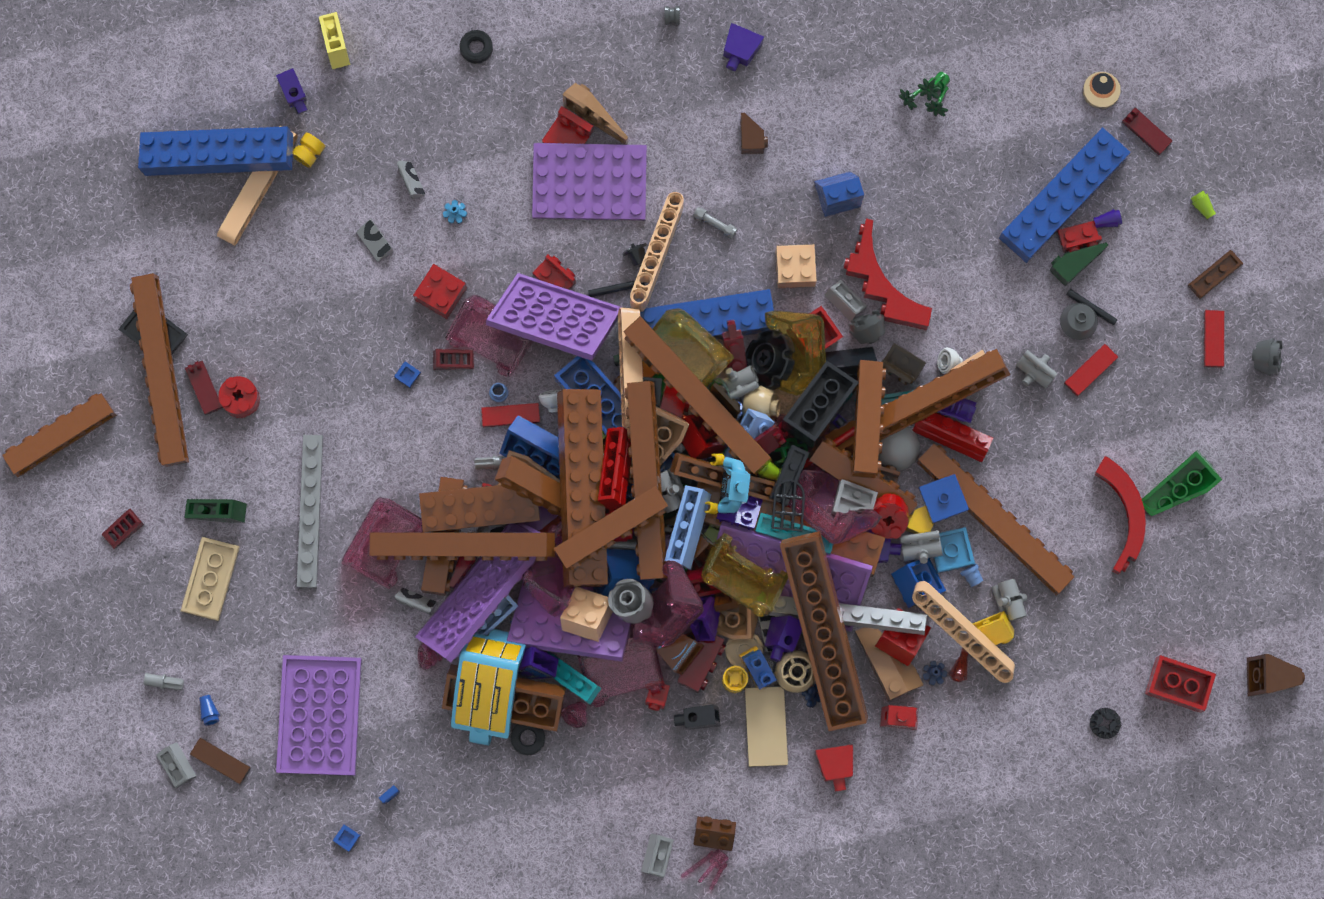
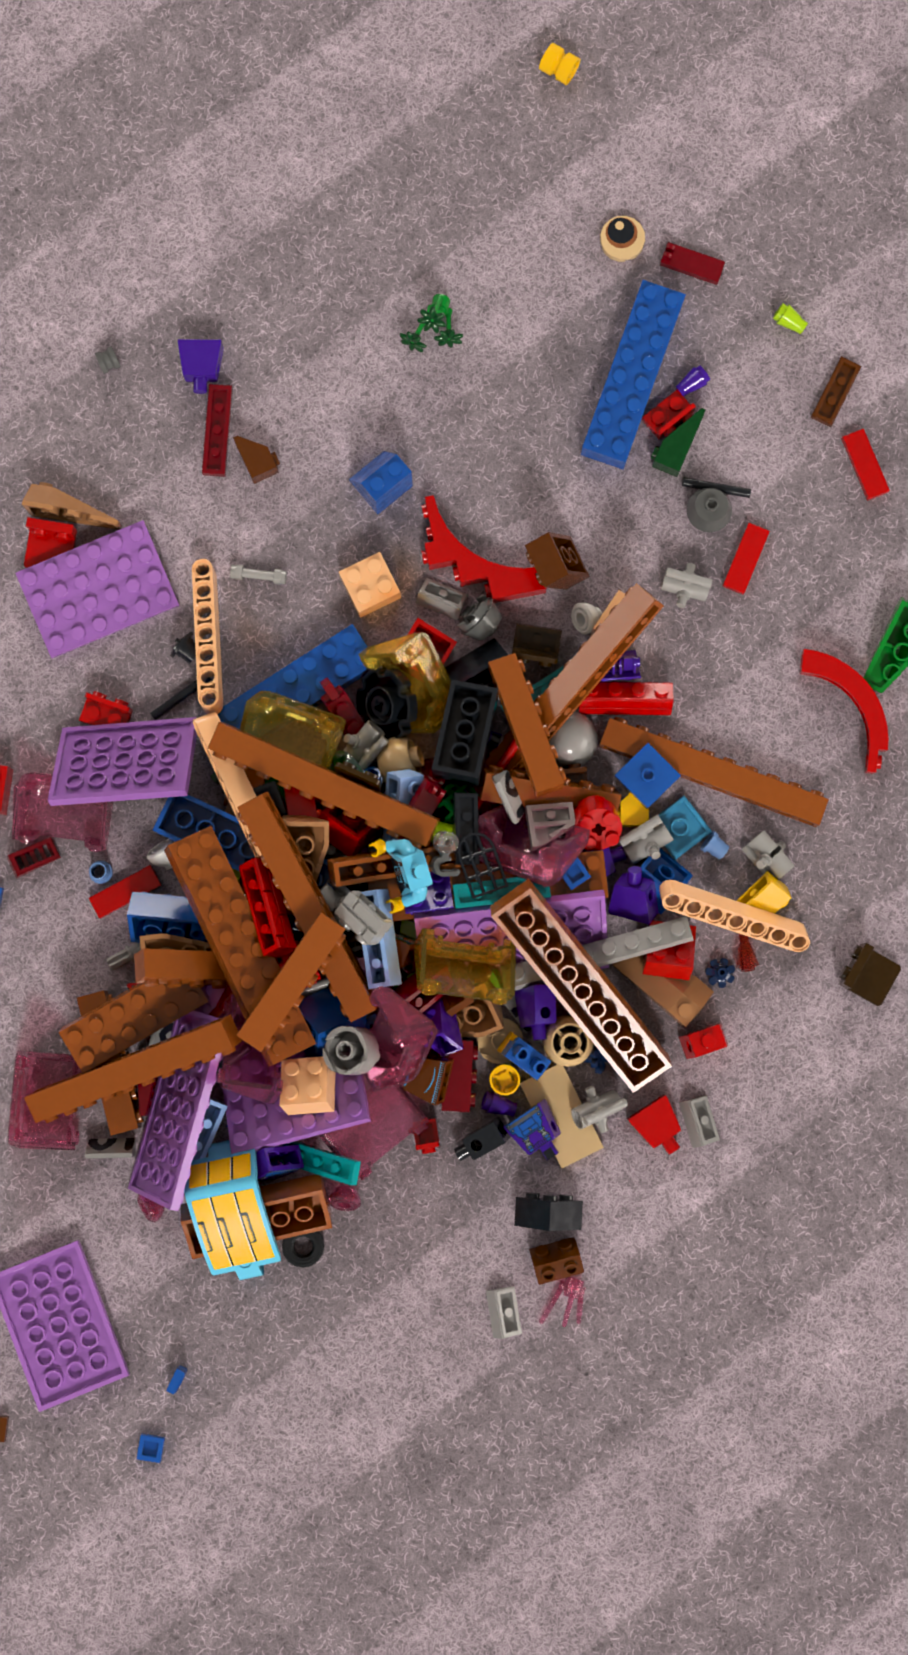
camera: 20 degrees left, 5 degrees up
(684, 505) = (363, 918): none -> light grey brick
(720, 695) = (498, 1104): none -> dark purple cone
(725, 793) = (548, 1212): none -> black brick
(731, 102) = (217, 430): none -> dark red plate
(742, 727) = (535, 1130): none -> torso
(768, 478) = (445, 843): none -> leg
(795, 732) = (597, 1109): none -> light grey pin
(832, 466) = (509, 796): none -> light grey slope
(856, 546) = (576, 875): none -> blue tile
(869, 777) = (699, 1121): none -> light grey slope
(893, 585) = (634, 897): none -> dark purple torso
(944, 308) = (556, 561): none -> reddish brown brick
(1048, 723) = (869, 974): none -> dark brown bracket

